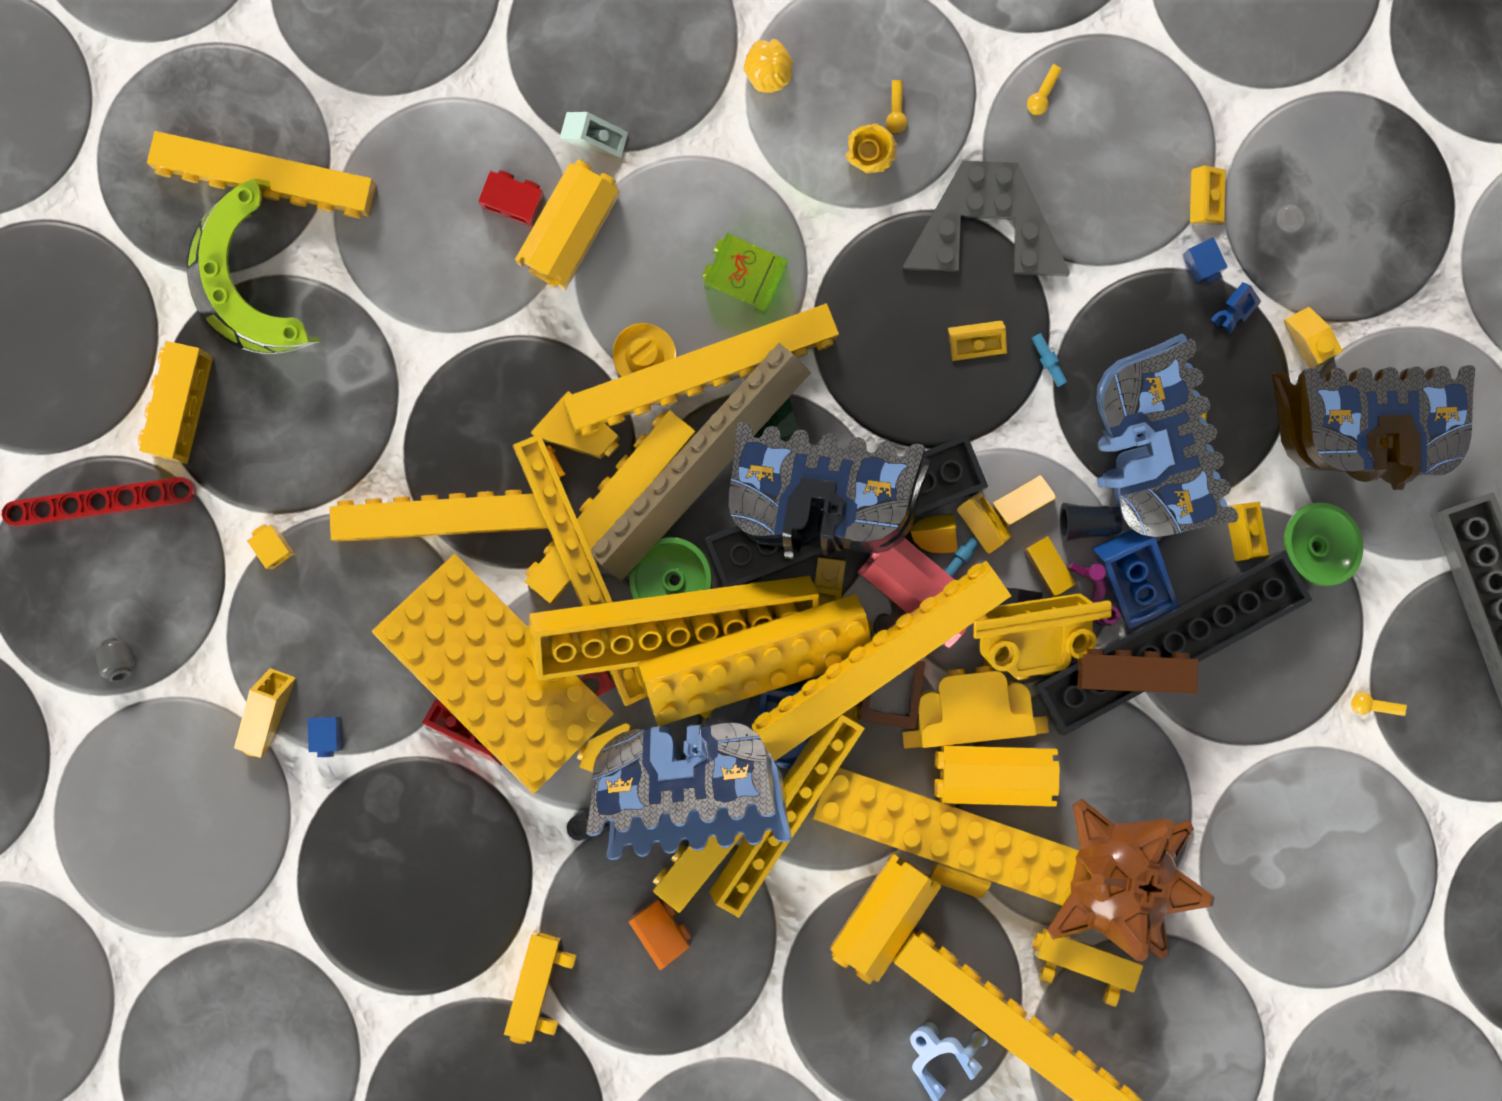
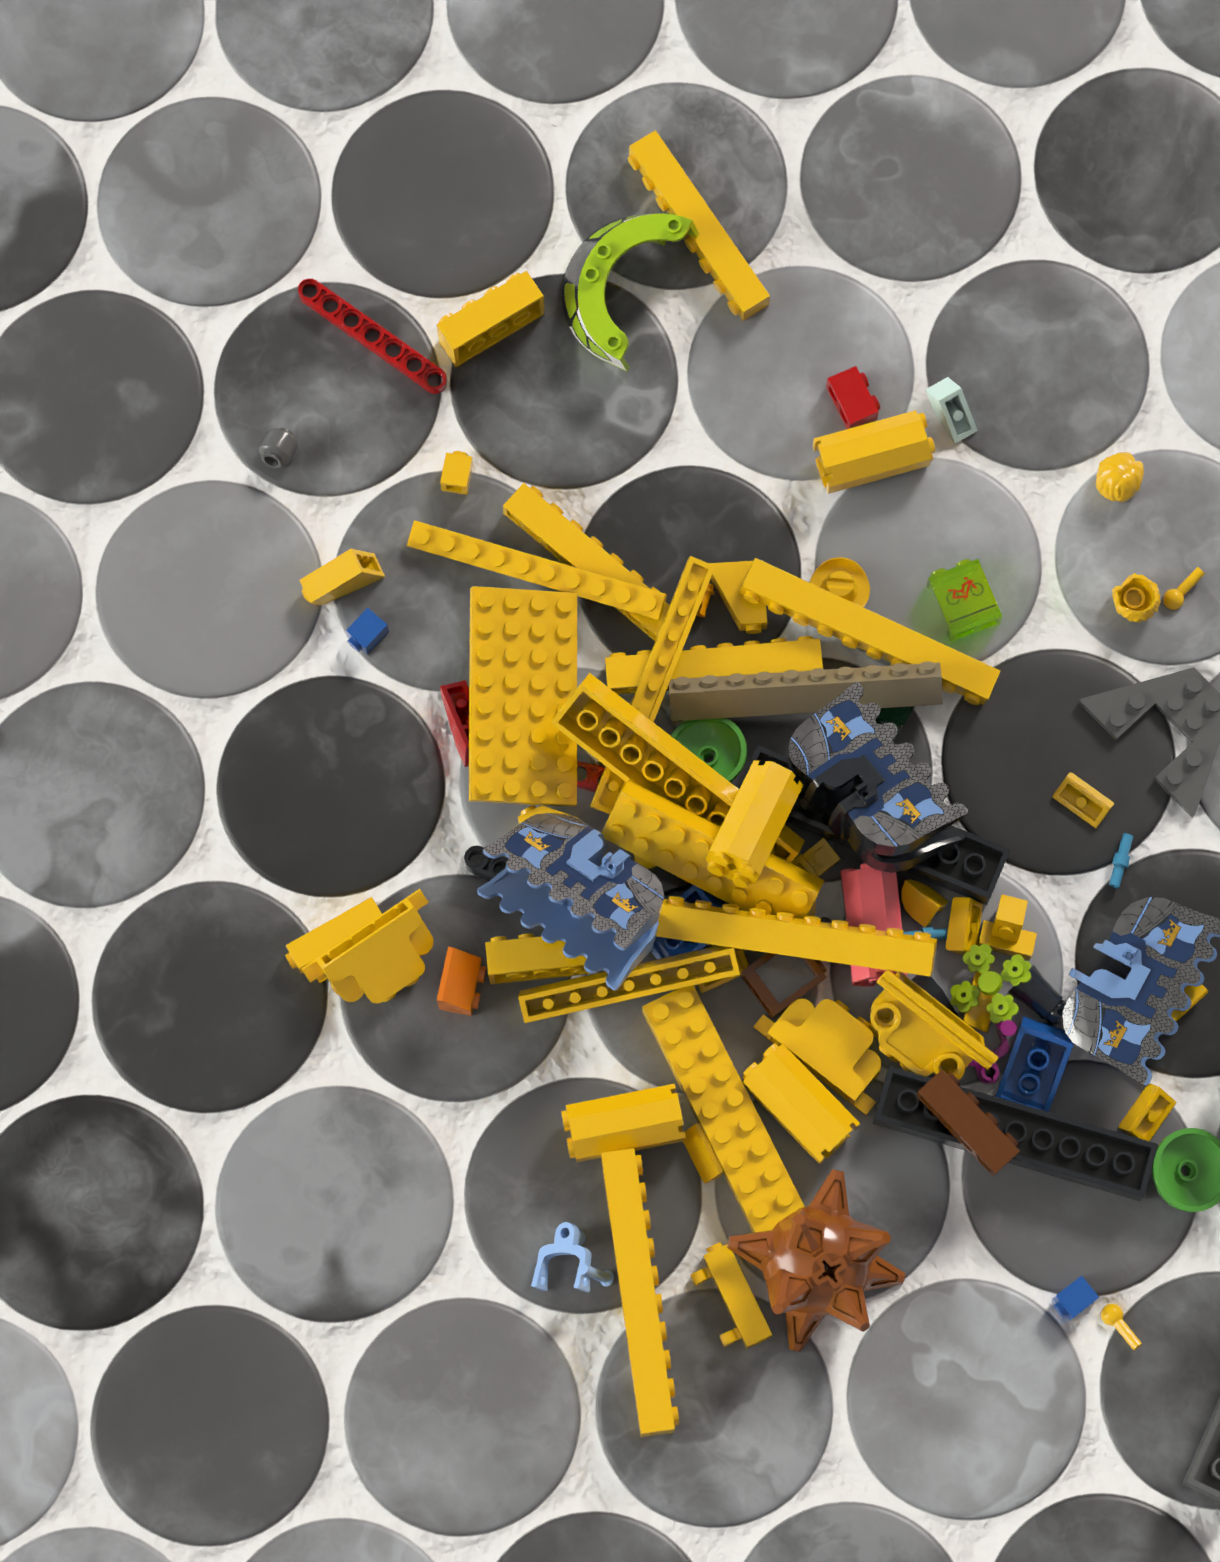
camera: 45 degrees right, 10 degrees down
(406, 564) = (537, 570): none -> yellow plate
(581, 974) = (379, 955): none -> yellow brick
(769, 611) = (753, 823): none -> yellow brick
(1013, 485) = (1009, 918): none -> yellow brick
(1048, 548) = (990, 983): none -> lime plant
(1328, 720) = (1074, 1298): none -> blue brick

